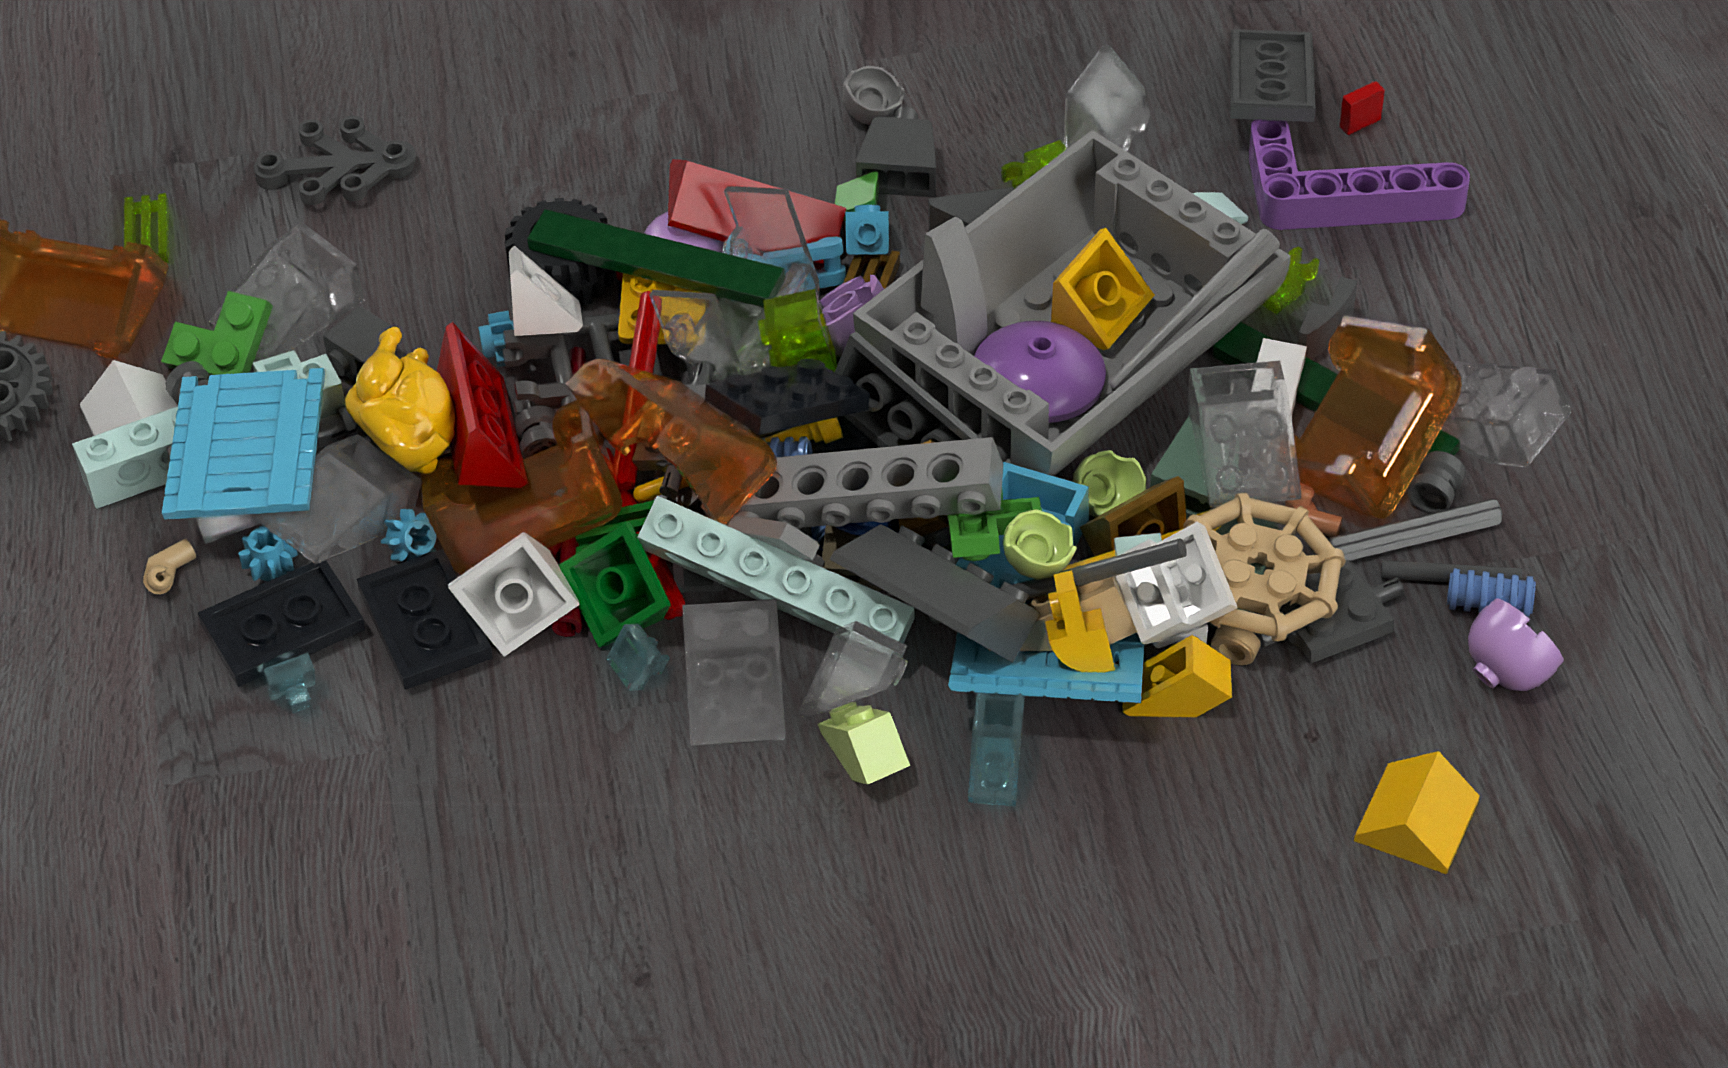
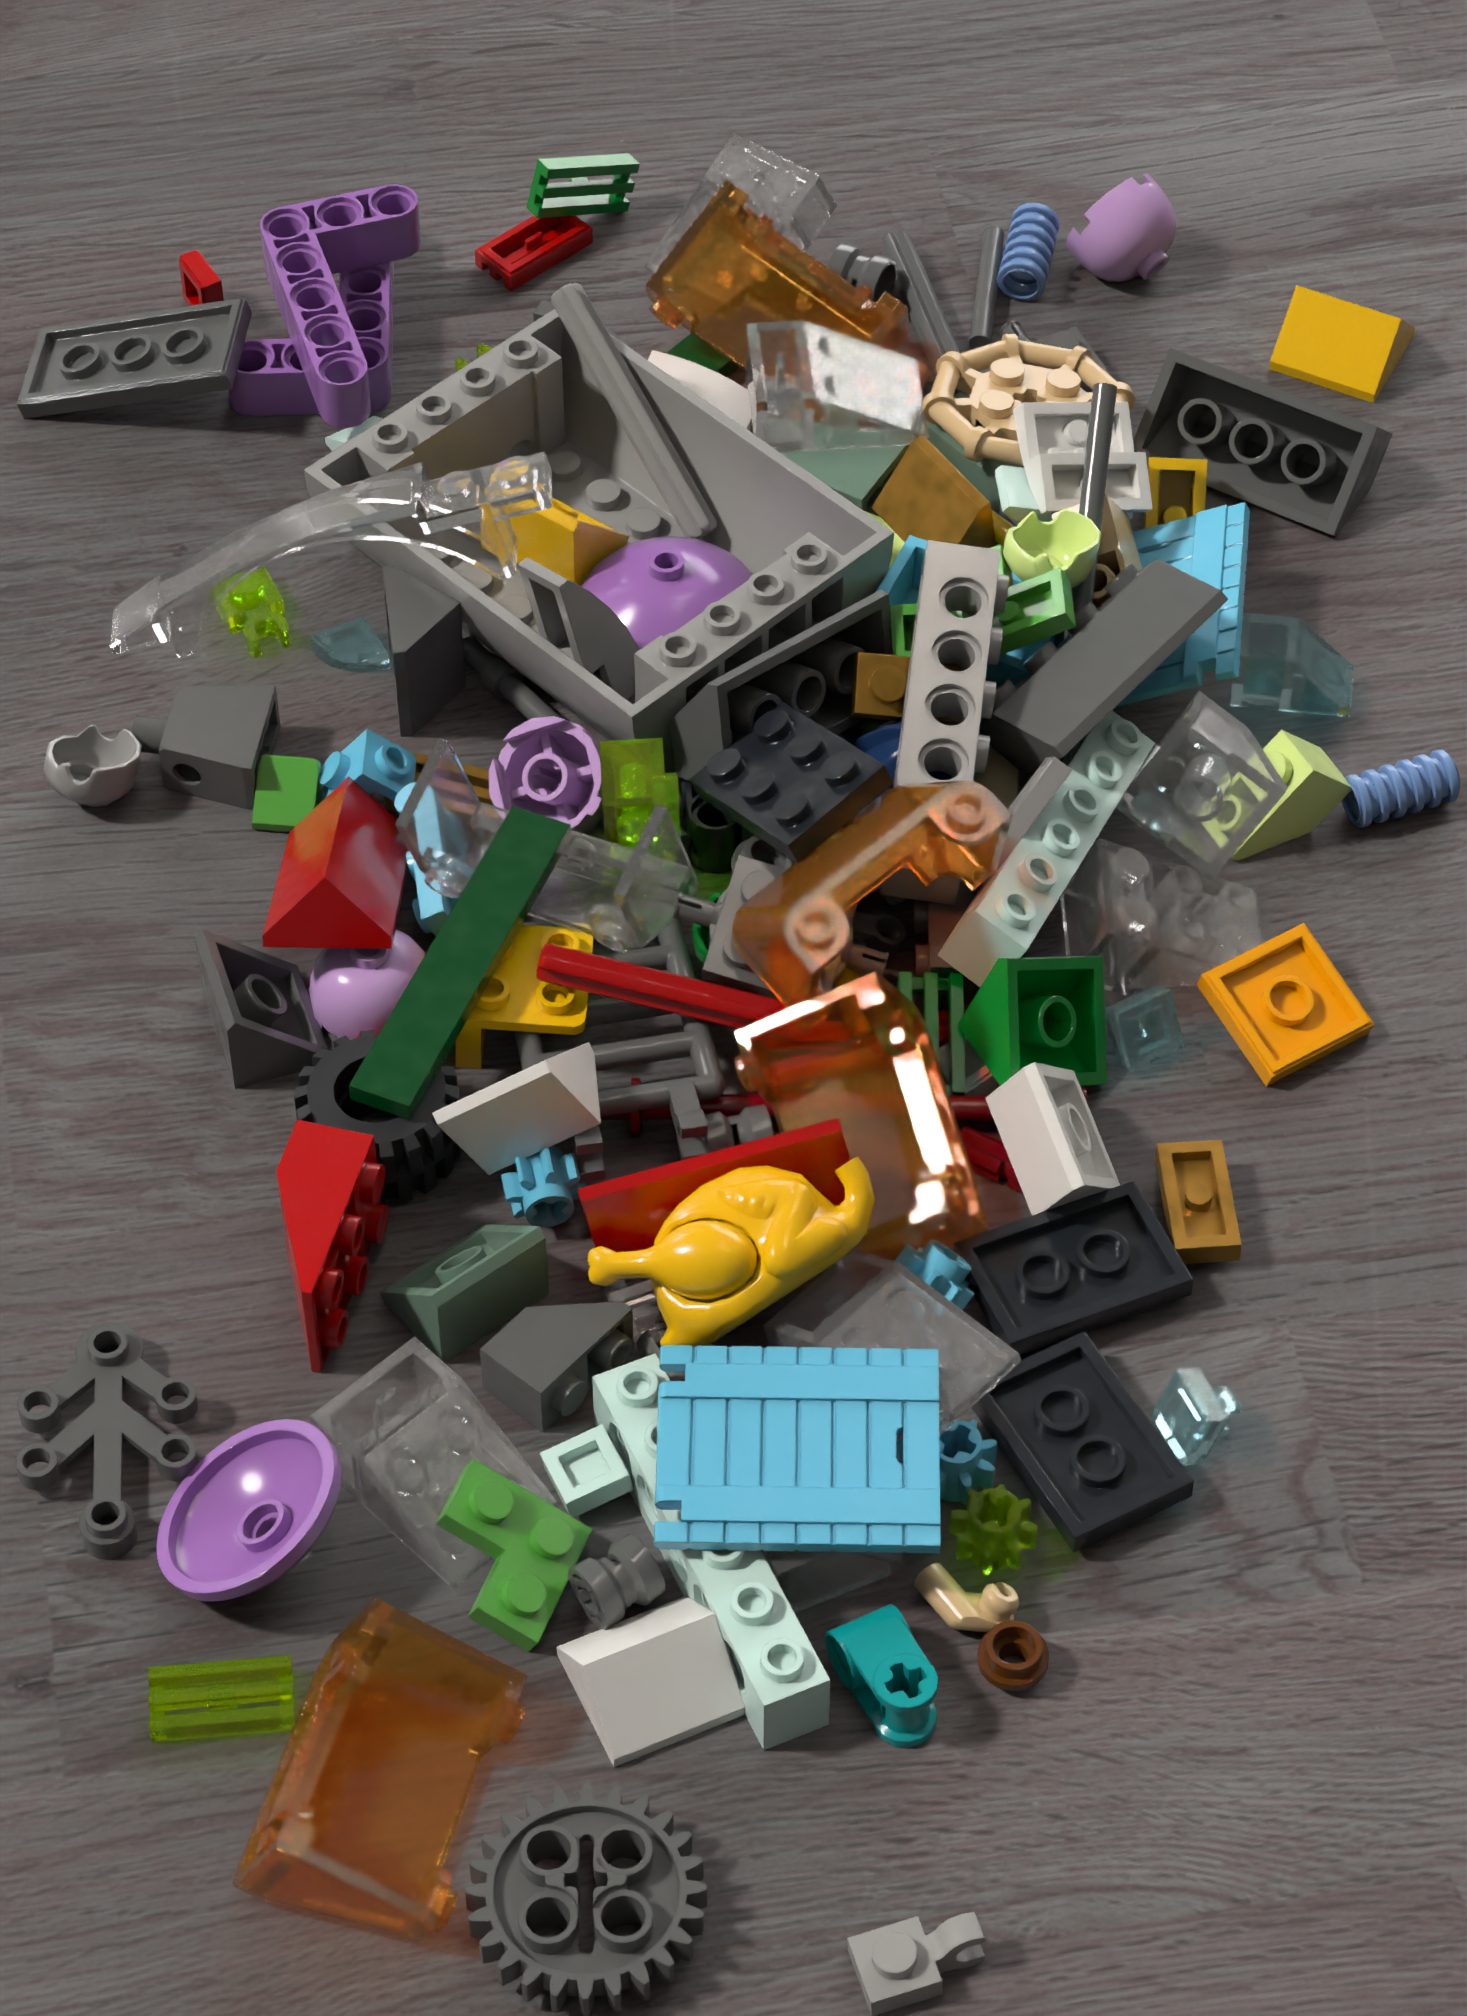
camera: 90 degrees left, 0 degrees up
(113, 519) = (886, 1675): none -> teal piece
(122, 589) = (1018, 1640): none -> reddish brown plate
(212, 573) = (993, 1529): none -> clear neon green gear
(250, 217) = (249, 1510): none -> medium lavender dish
(425, 307) = (472, 1287): none -> sand green slope
(448, 225) = (329, 1221): none -> red slope
(478, 689) = (1198, 1201): none -> pearl gold plate
(642, 182) = (257, 1010): none -> dark grey slope
(658, 743) = (1285, 1004): none -> light orange plate
(880, 824) = (1401, 788): none -> medium blue piece
(1041, 169) = (453, 513): none -> clear slope
(1074, 635) = (1152, 532): yellow brick -> none
(1107, 101) = (170, 516): clear slope -> none
(1273, 744) = (1262, 442): none -> dark grey slope
(1319, 139) = (301, 253): none -> medium lavender beam
(1451, 297) = (539, 252): none -> red tile
(1506, 302) = (580, 194): none -> green tile

